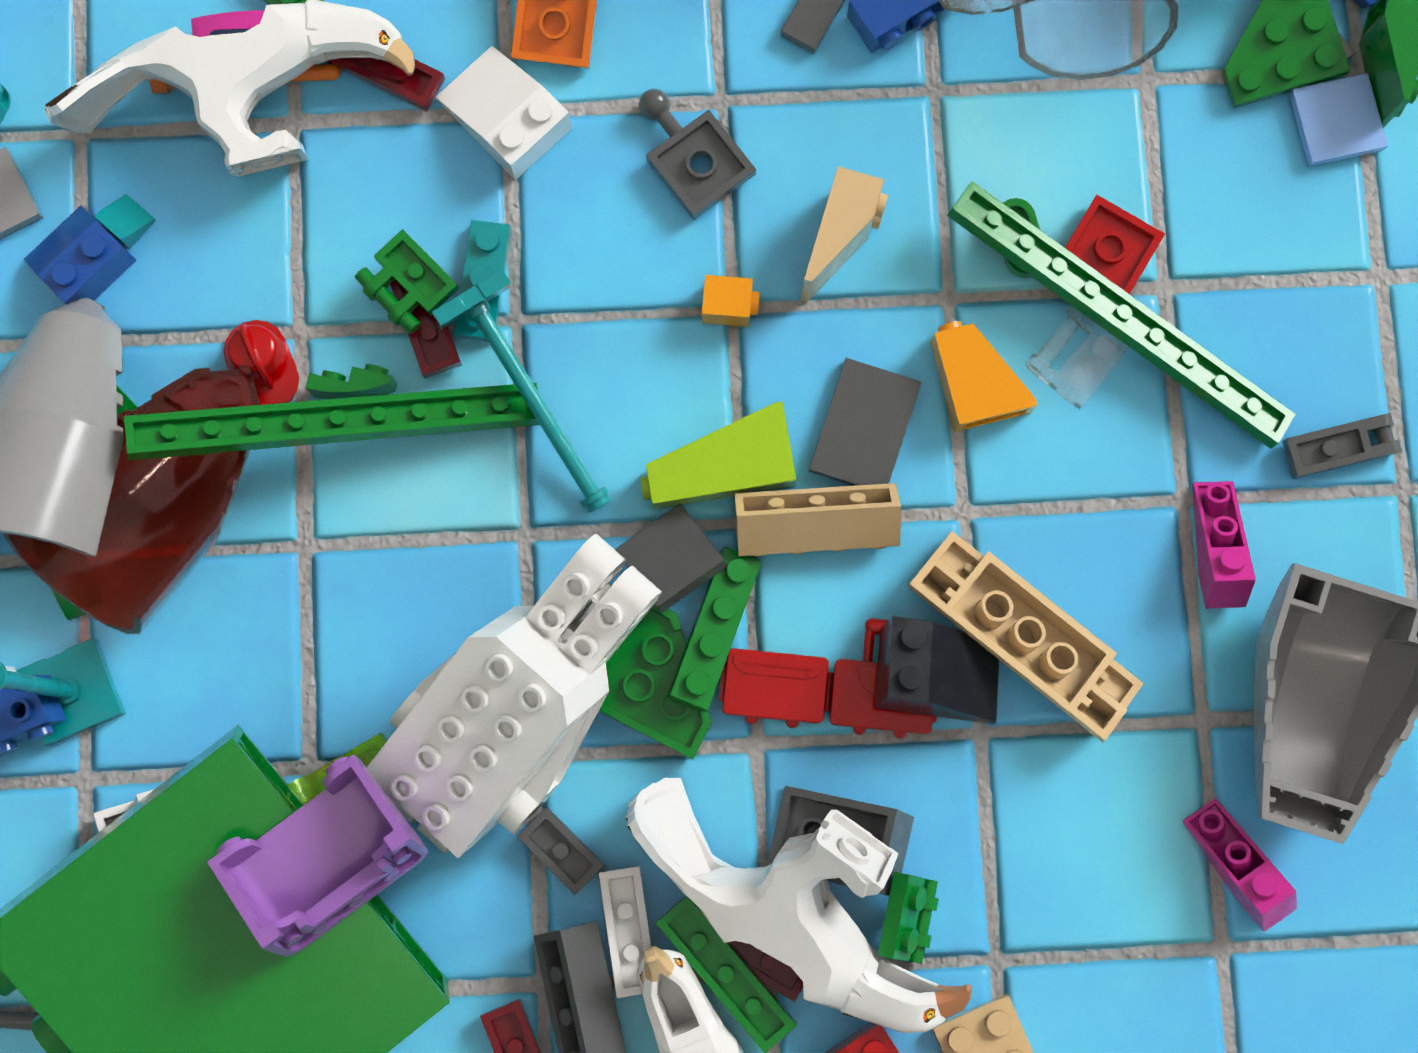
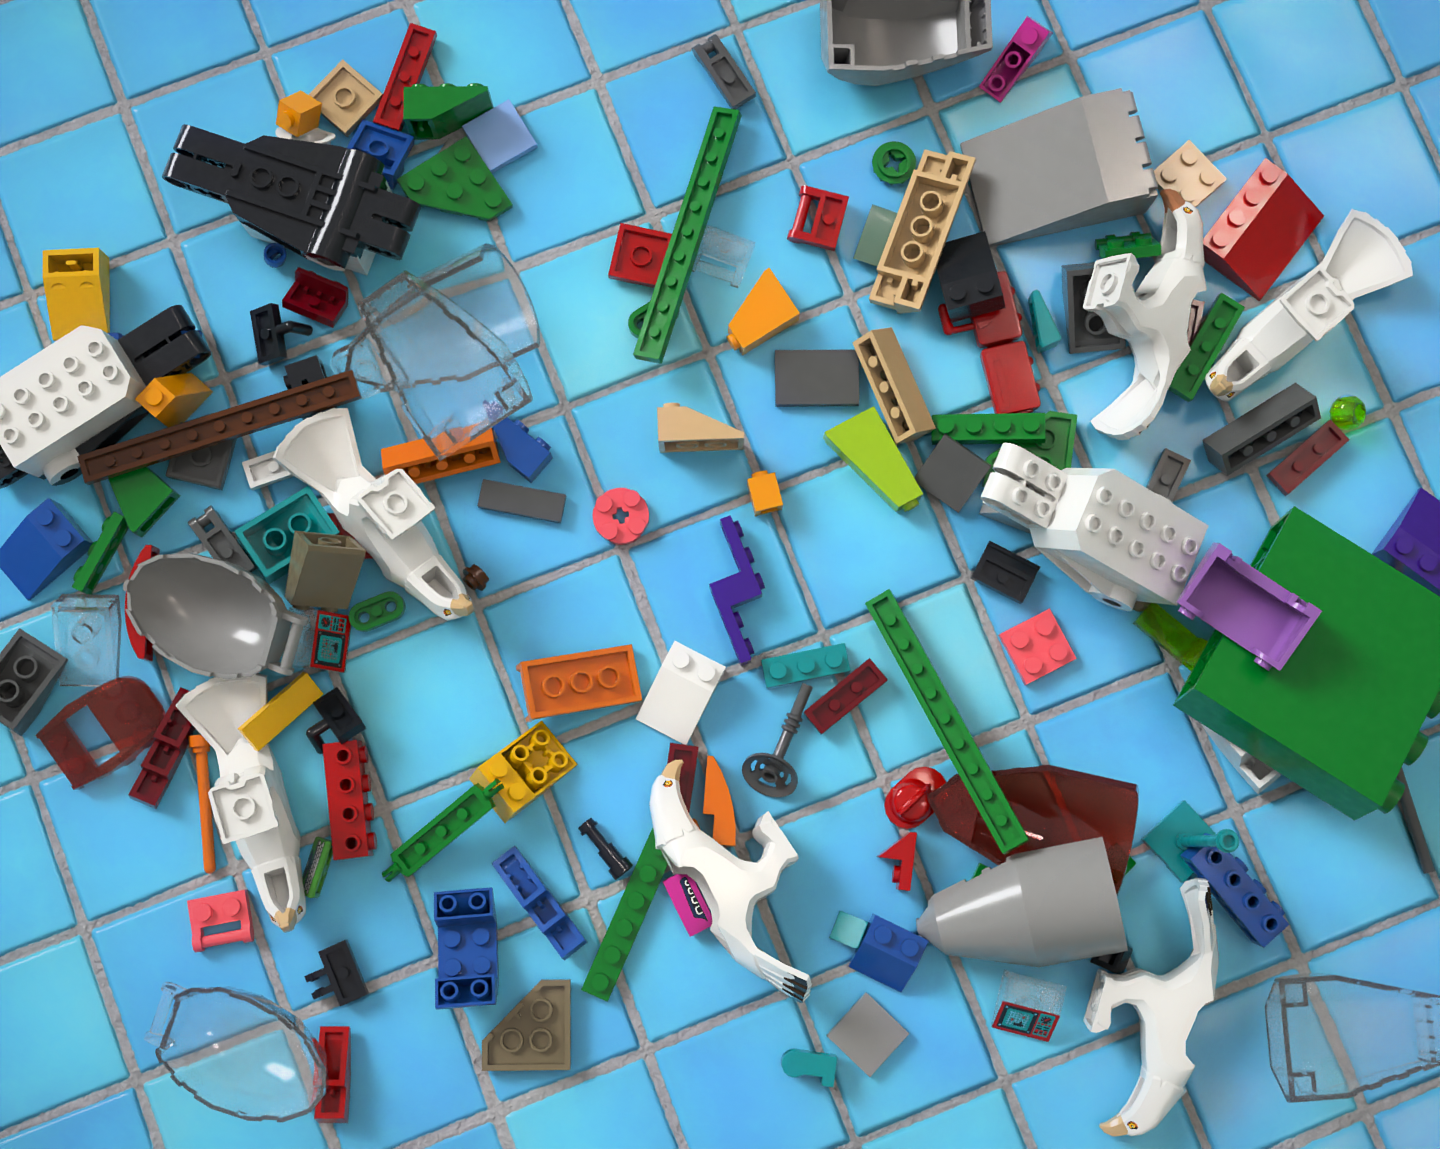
camera: 110 degrees left, 0 degrees up
(193, 316) = (903, 851): none -> red slope
(342, 109) = (719, 803): none -> orange slope
(361, 189) = (776, 763): none -> dark grey dish
(362, 382) = (906, 717): green slope -> none
(397, 592) = (1037, 646): none -> coral plate
(415, 273) = (822, 706): green plate -> none
(475, 305) = (833, 654): teal tile -> none
(511, 579) = (1005, 572): none -> black plate
(611, 221) = (737, 589): none -> dark purple bracket
(625, 926) = (1198, 421): white plate -> none
(699, 138) = (676, 564): dark grey plate -> none
(750, 92) = (629, 502): none -> coral plate
(826, 758) = (1044, 328): none -> teal slope
(1041, 570) = (875, 235): none -> sand green slope
(1053, 862) = (1062, 169): none -> light grey windscreen
(1083, 514) = (827, 218): none -> red plate
(1148, 621) = (898, 152): none -> green gear
(1221, 546) = (816, 127): dark pink slope -> none

